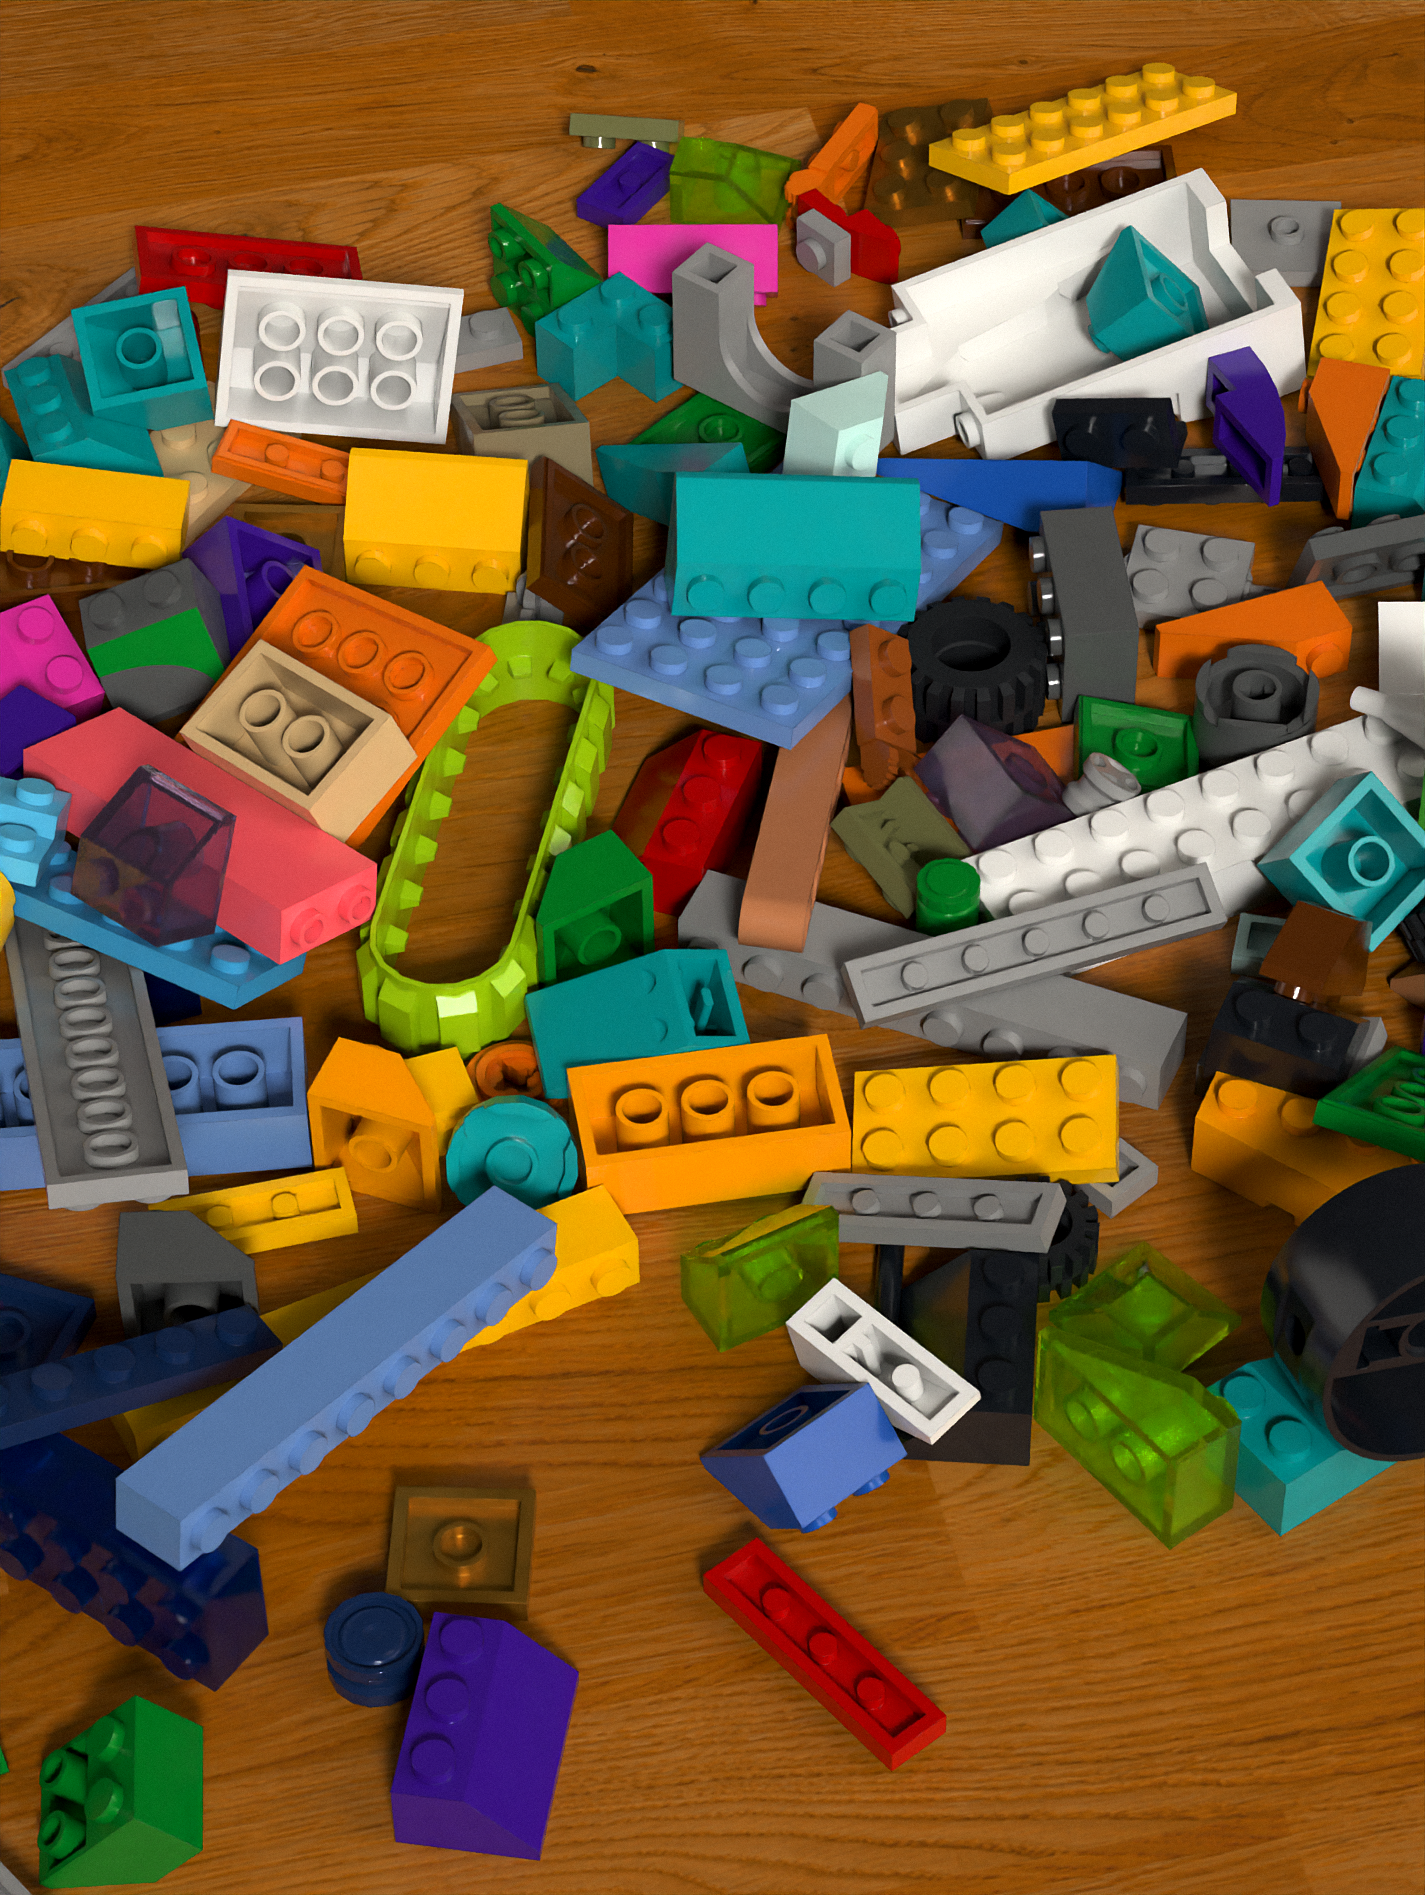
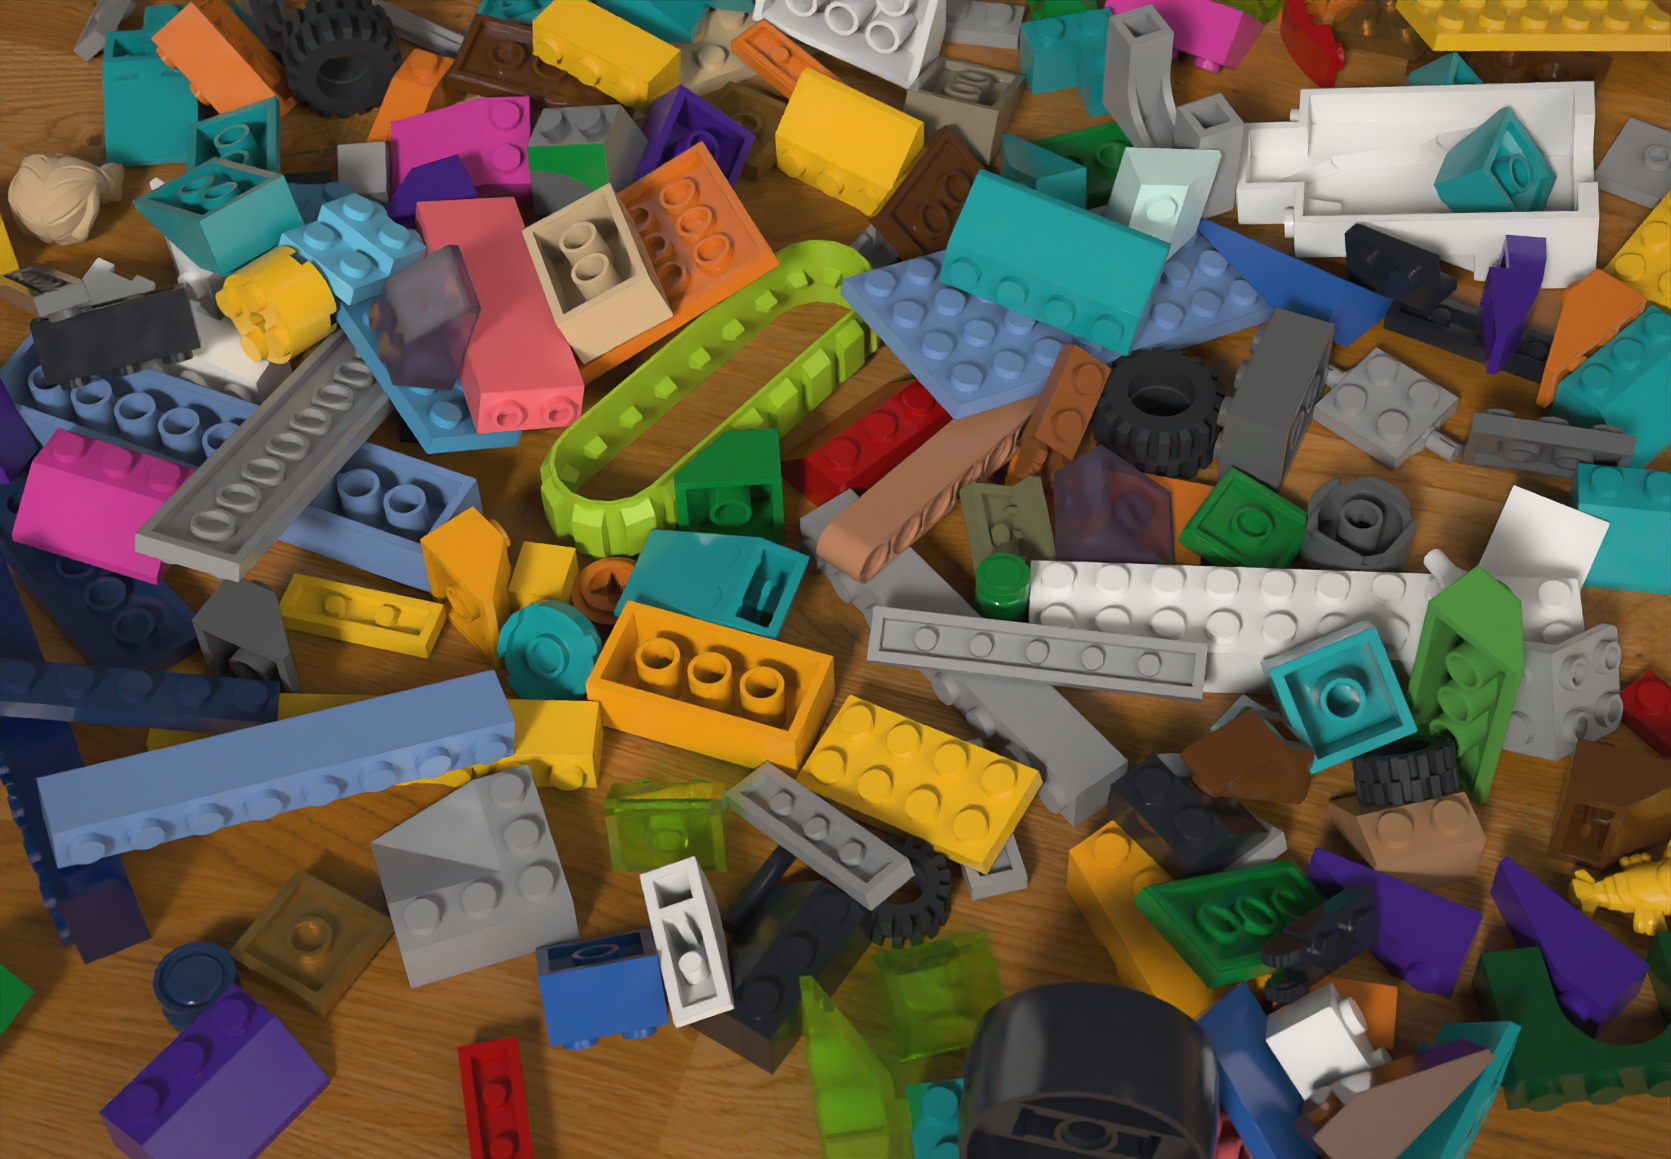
camera: 30 degrees right, 5 degrees up
(593, 1413) = (475, 879): none -> light grey slope
(823, 248) = (1284, 44): light grey plate -> none
(1101, 786) = (1190, 545): light grey wheel -> none
(1295, 619) = (1437, 479): orange slope -> none

